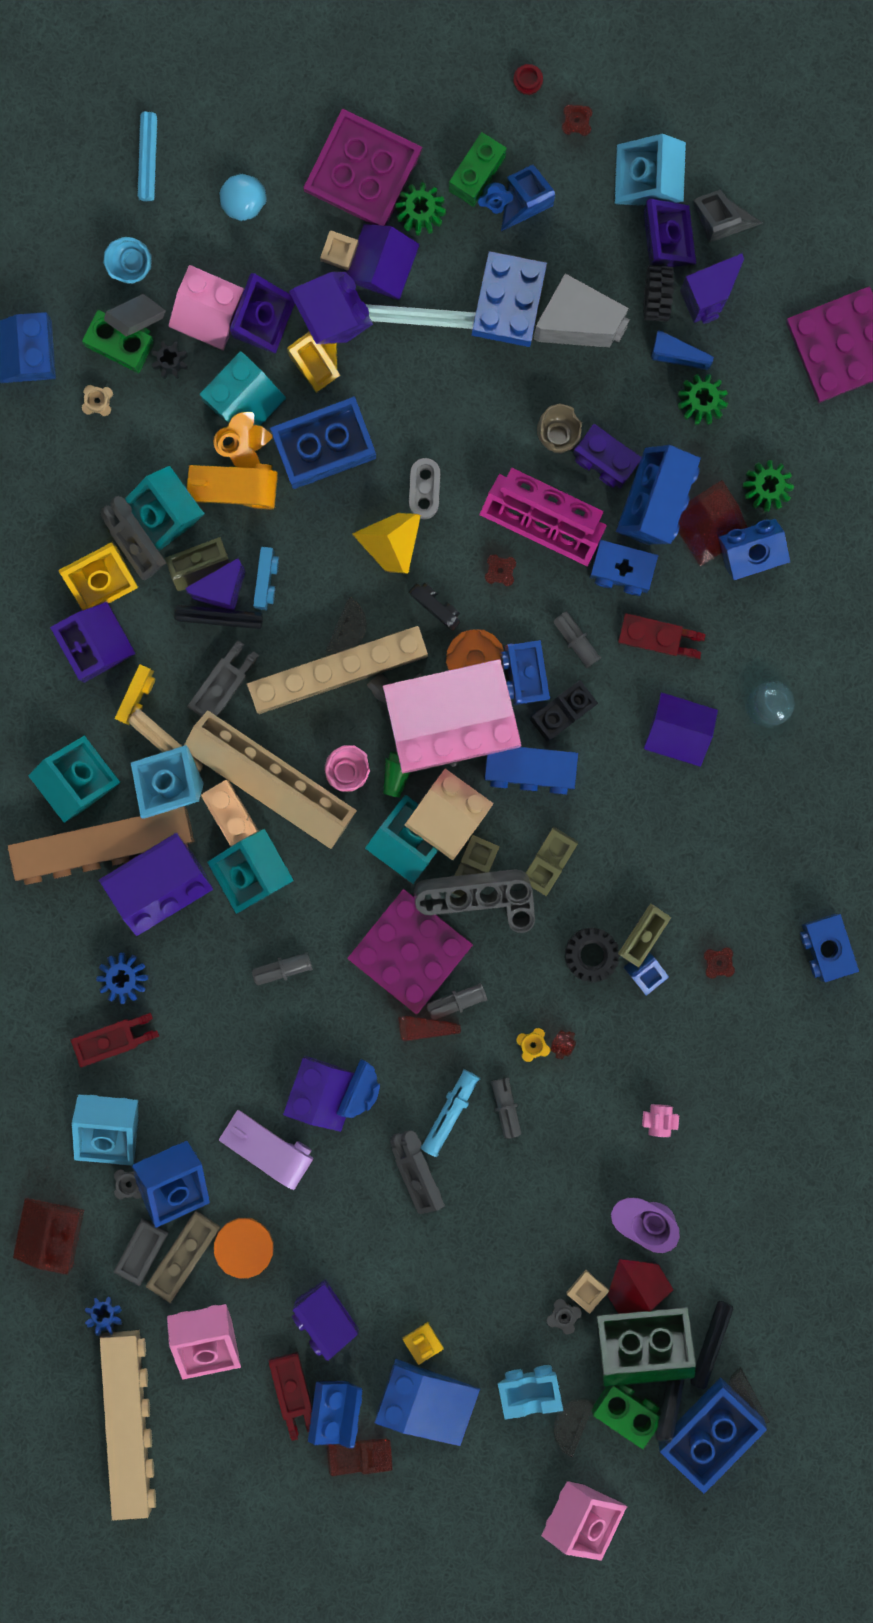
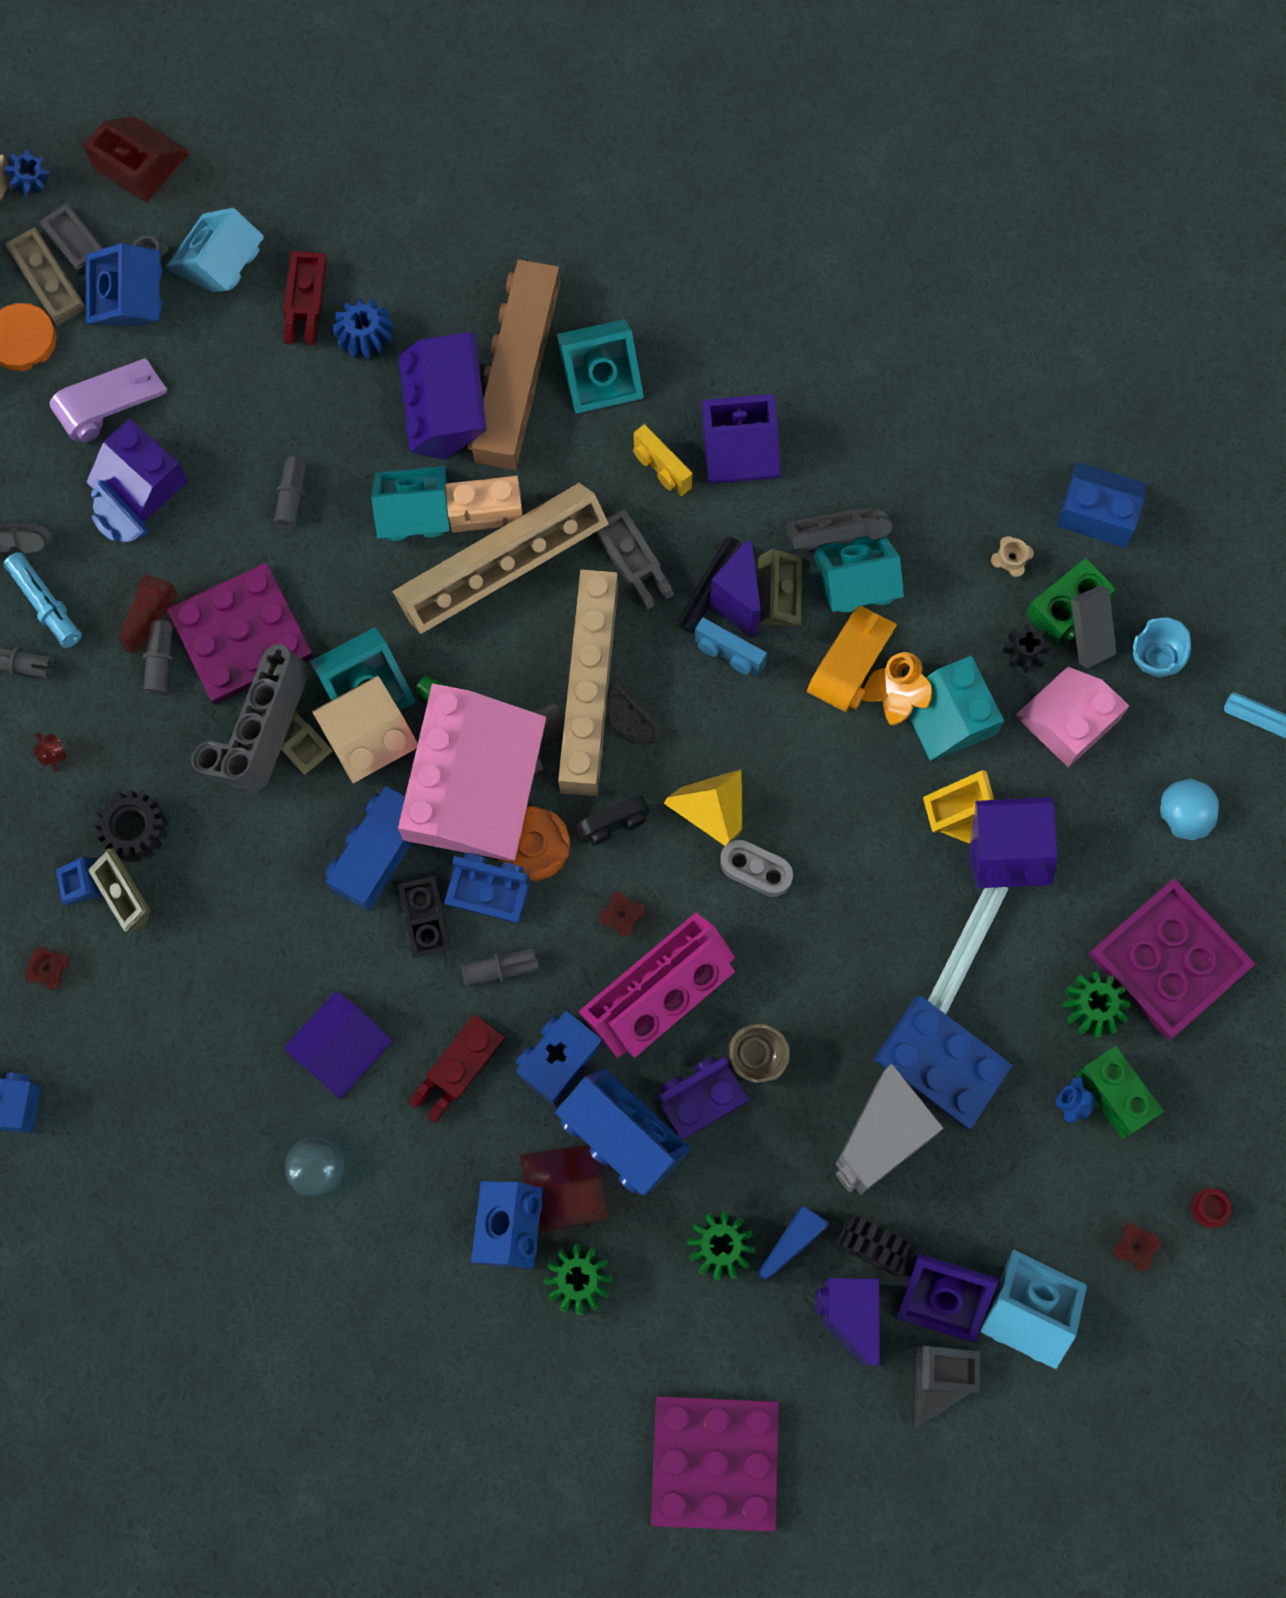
camera: 120 degrees right, 15 degrees down
(98, 577) = (809, 475): yellow slope -> none
(155, 734) = (596, 466): tan axle -> none
(166, 781) = (547, 449): medium azure slope -> none
(262, 314) = (1040, 765): dark purple slope -> none
(323, 443) = (858, 772): blue brick -> none
(339, 250) = (1082, 890): tan plate -> none
(347, 768) = (473, 645): bright pink hair -> none
(383, 260) = (1049, 936): dark purple slope -> none
(526, 1039) = (64, 710): yellow plate -> none
(530, 196) = (1063, 1144): blue slope -> none
(550, 860) = (261, 827): olive slope -> none

